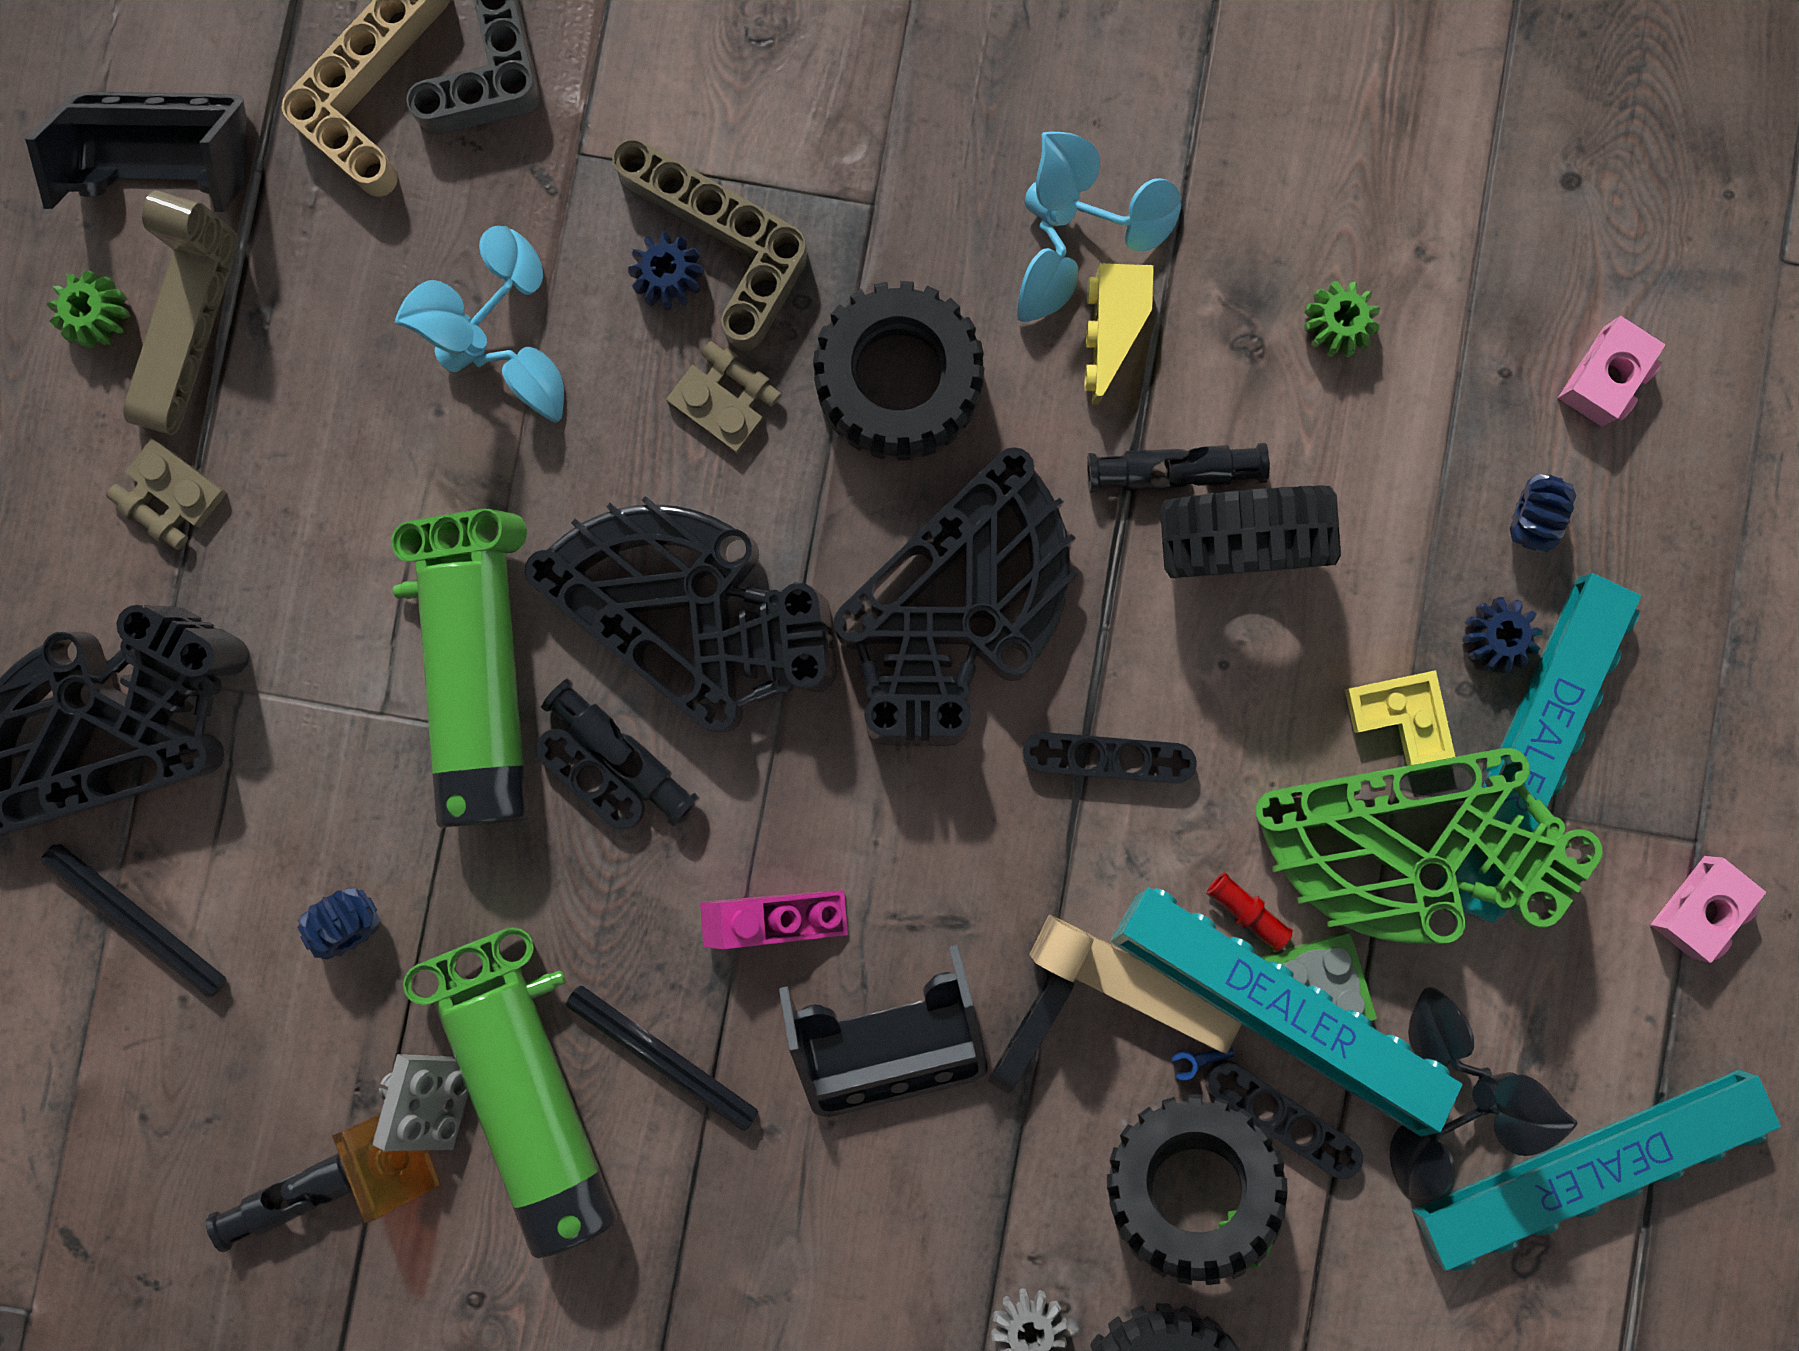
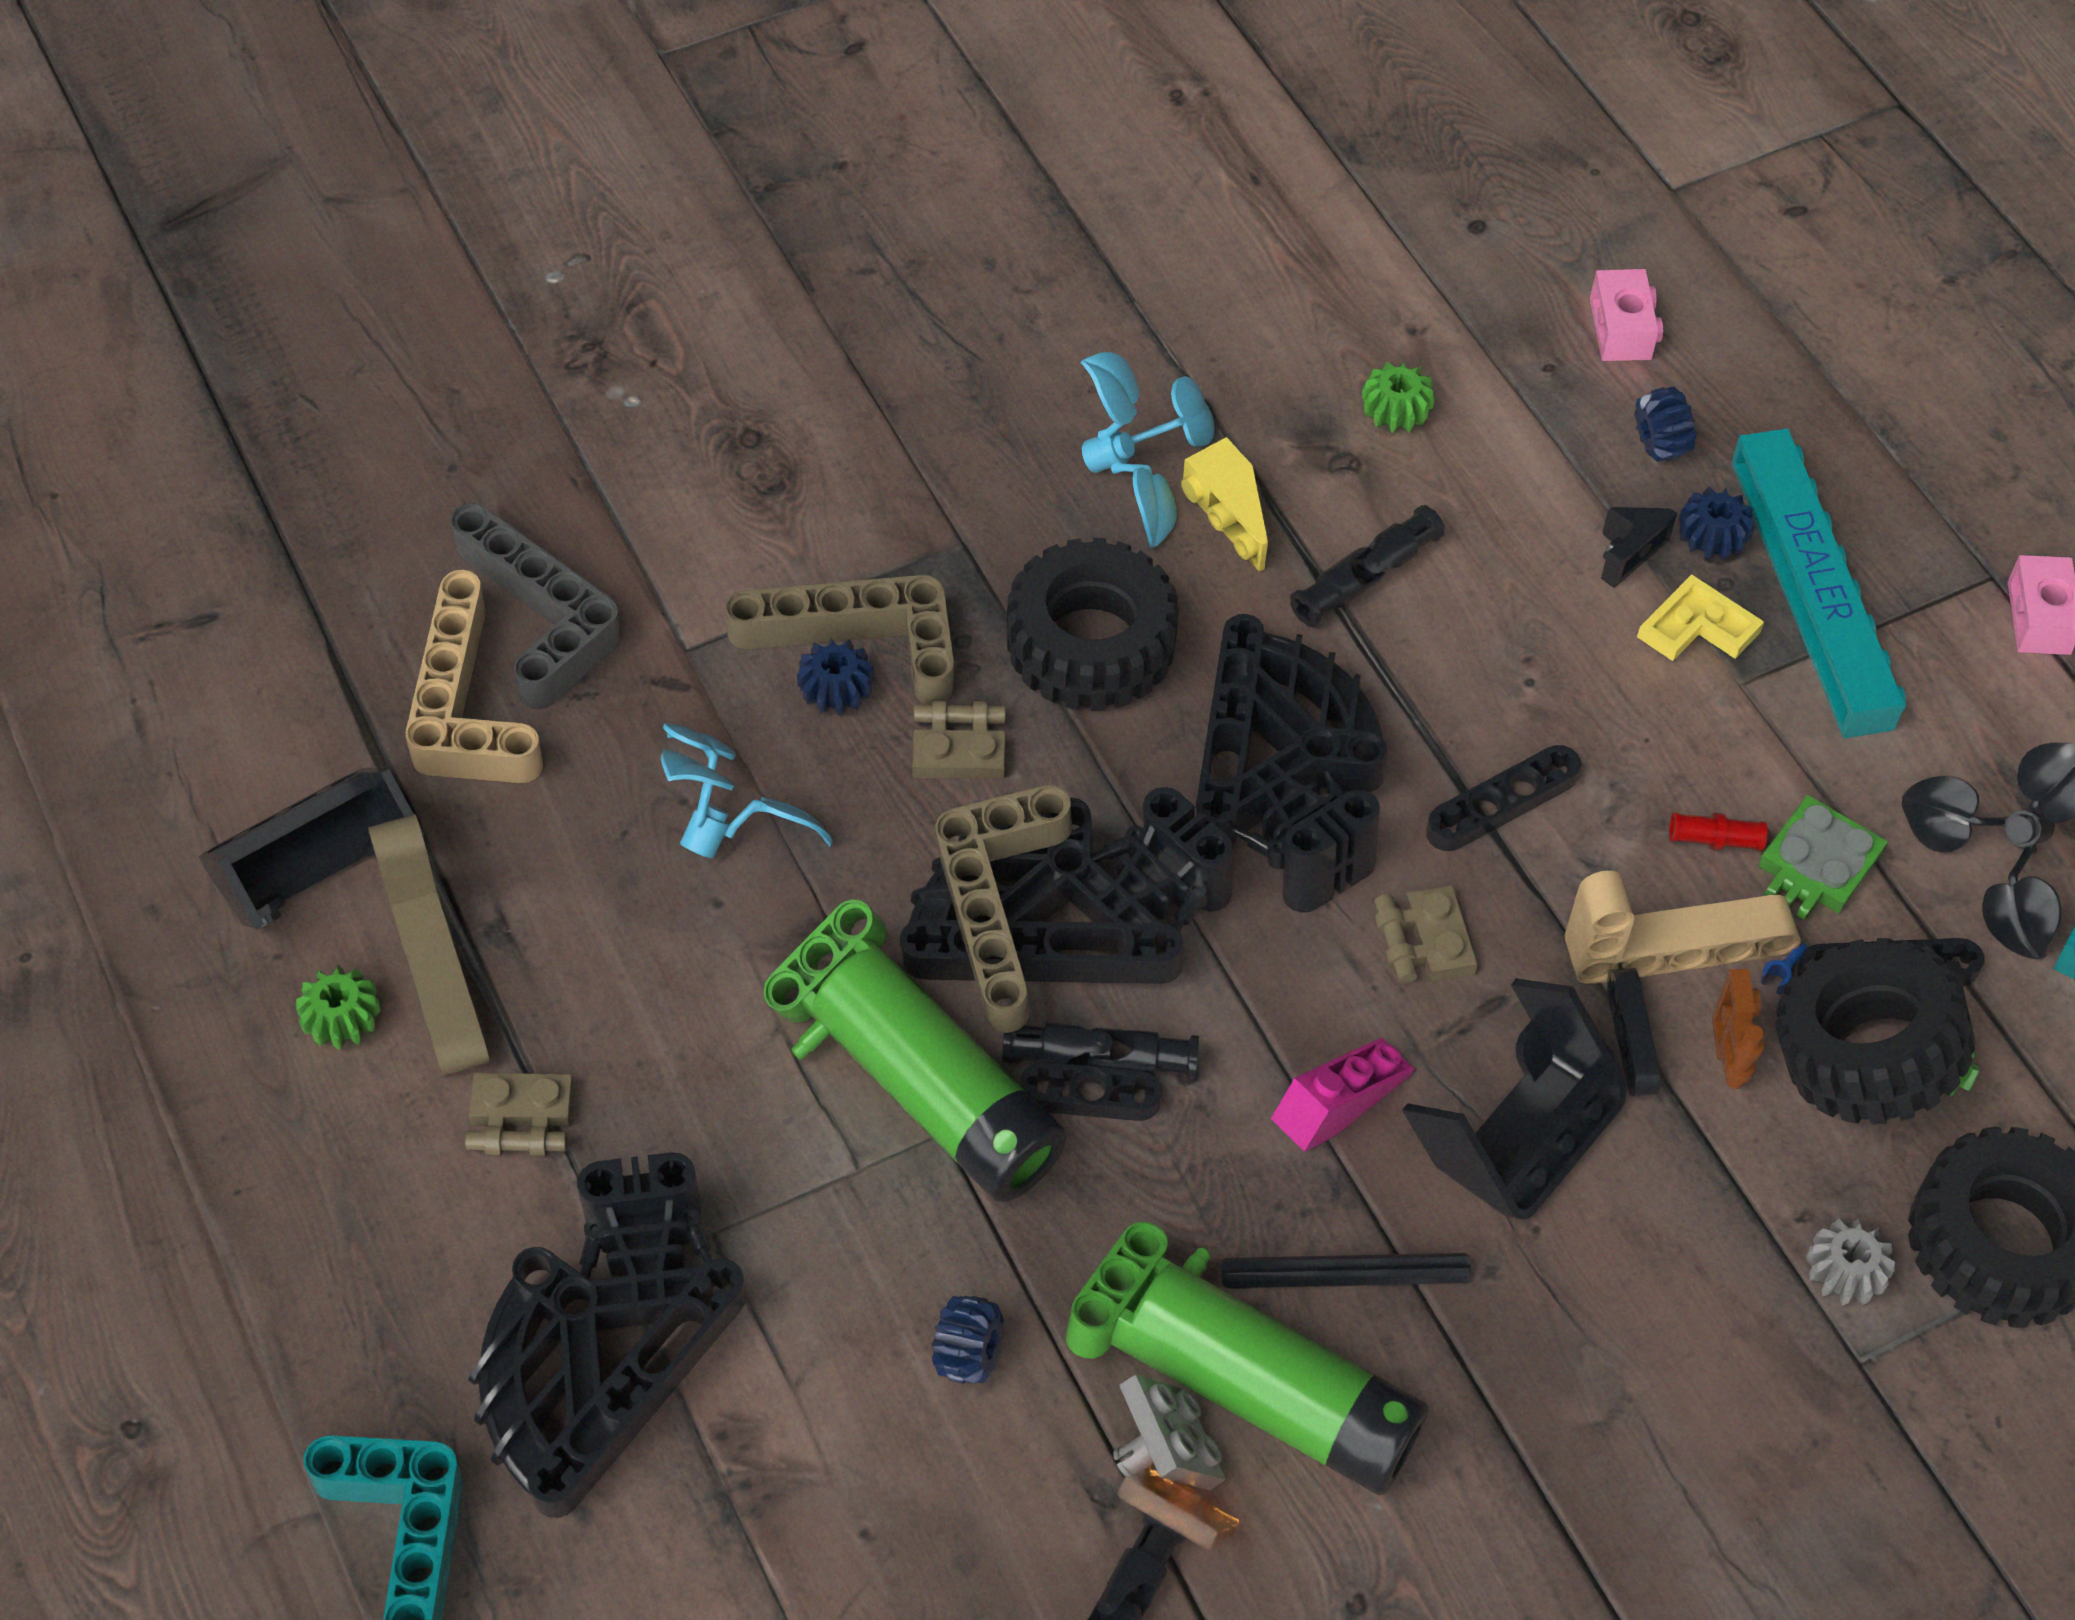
camera: 40 degrees left, 30 degrees down
(133, 920) = (764, 1487): black axle -> none
(607, 581) = (981, 896): none -> dark tan beam
(959, 837) = (1438, 930): none -> dark tan plate
(1106, 1092) = (1736, 1038): none -> dark orange plate
(1250, 531) = (1468, 545): black tyre -> none
(1287, 1012) = (1814, 863): teal brick -> none
(1428, 600) = (1634, 538): none -> black slope
(1524, 860) = (1892, 630): bright green beam -> none

